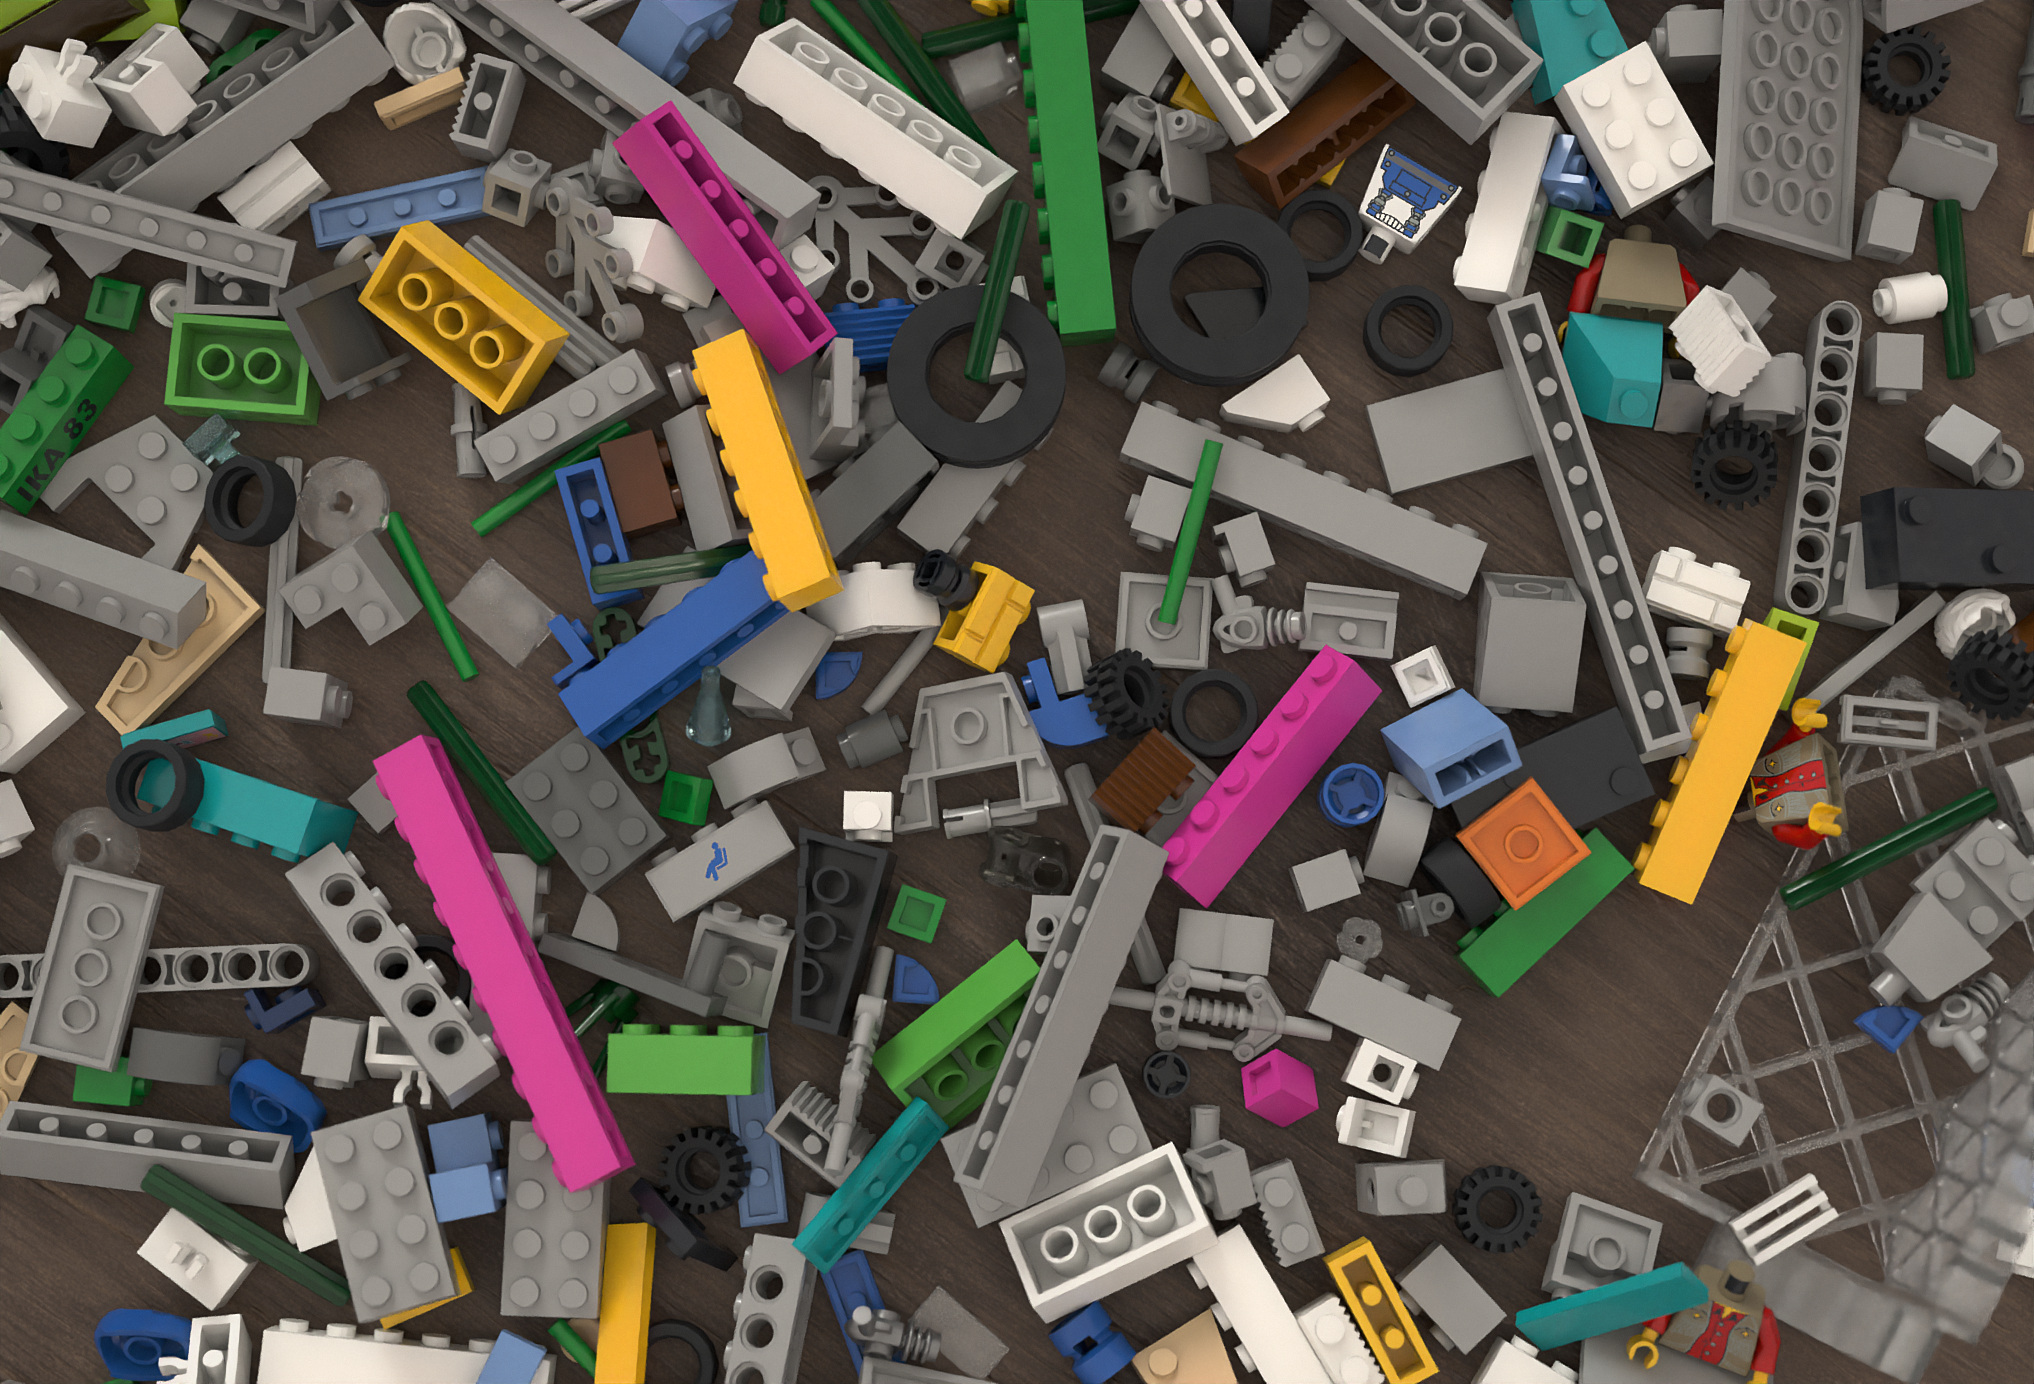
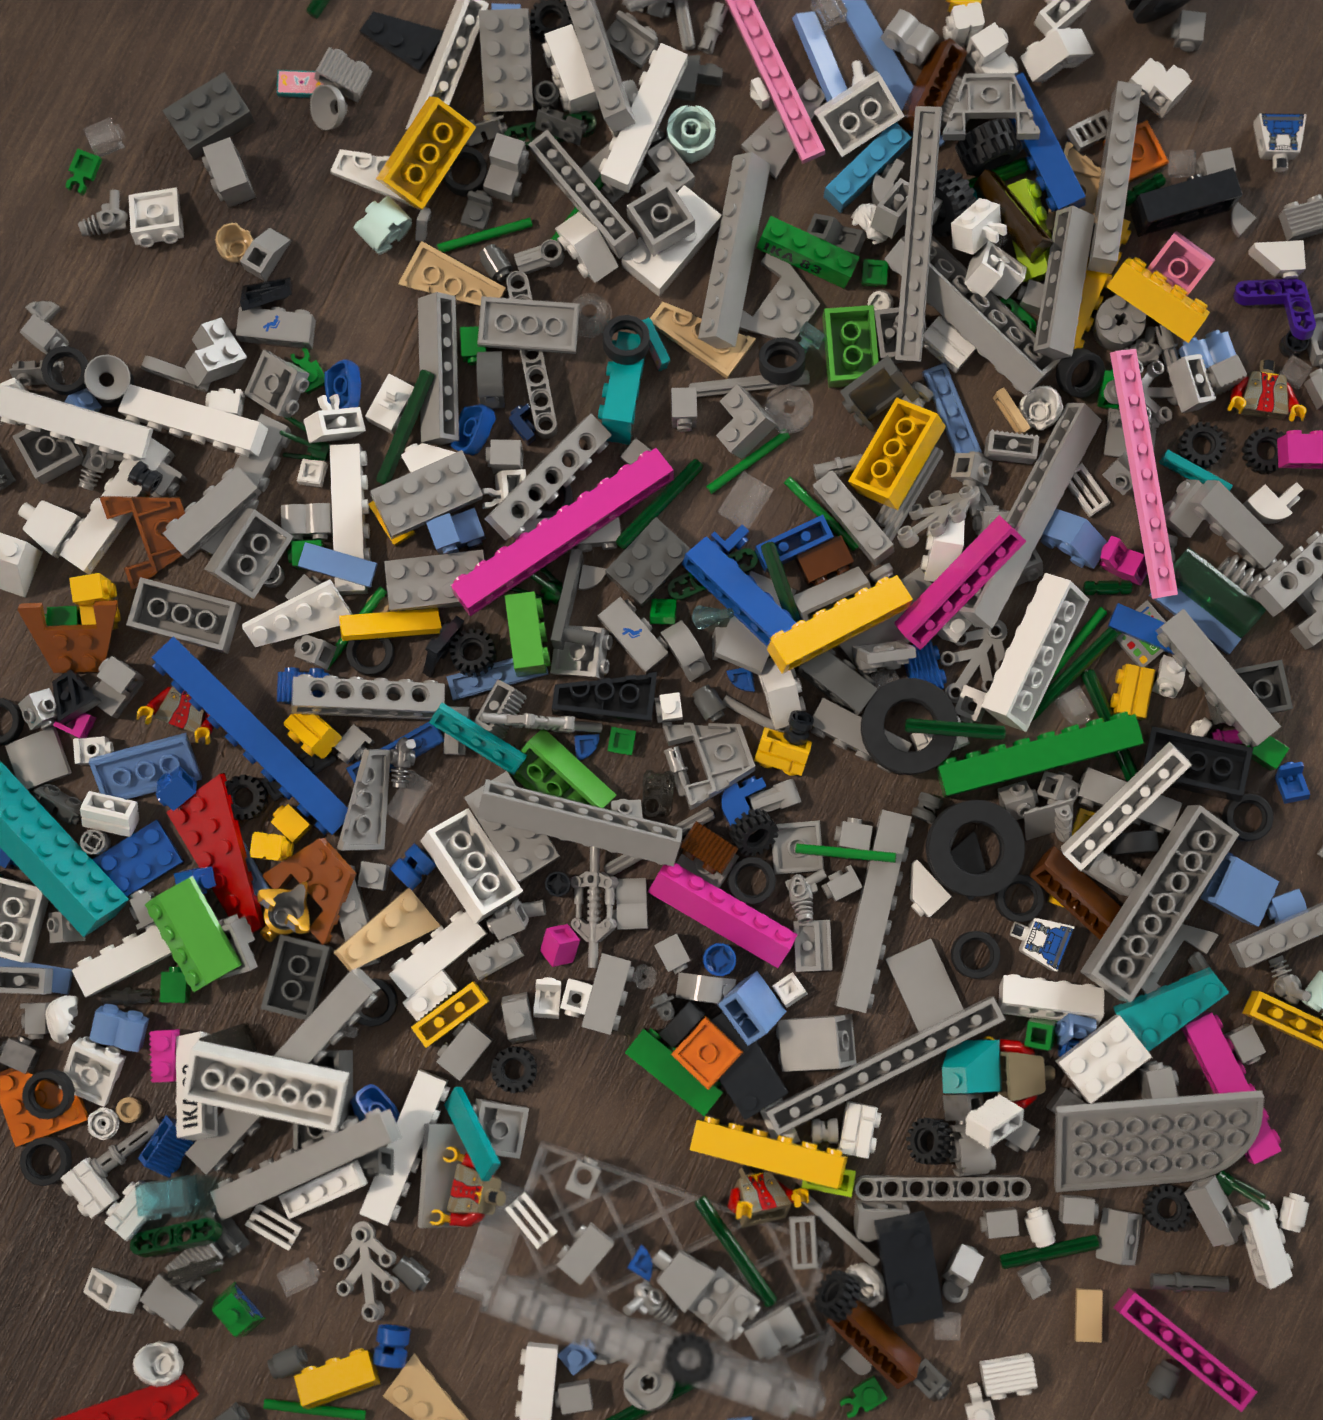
camera: 80 degrees right, 0 degrees up
(1858, 1128) = (584, 1253): none -> light grey brick

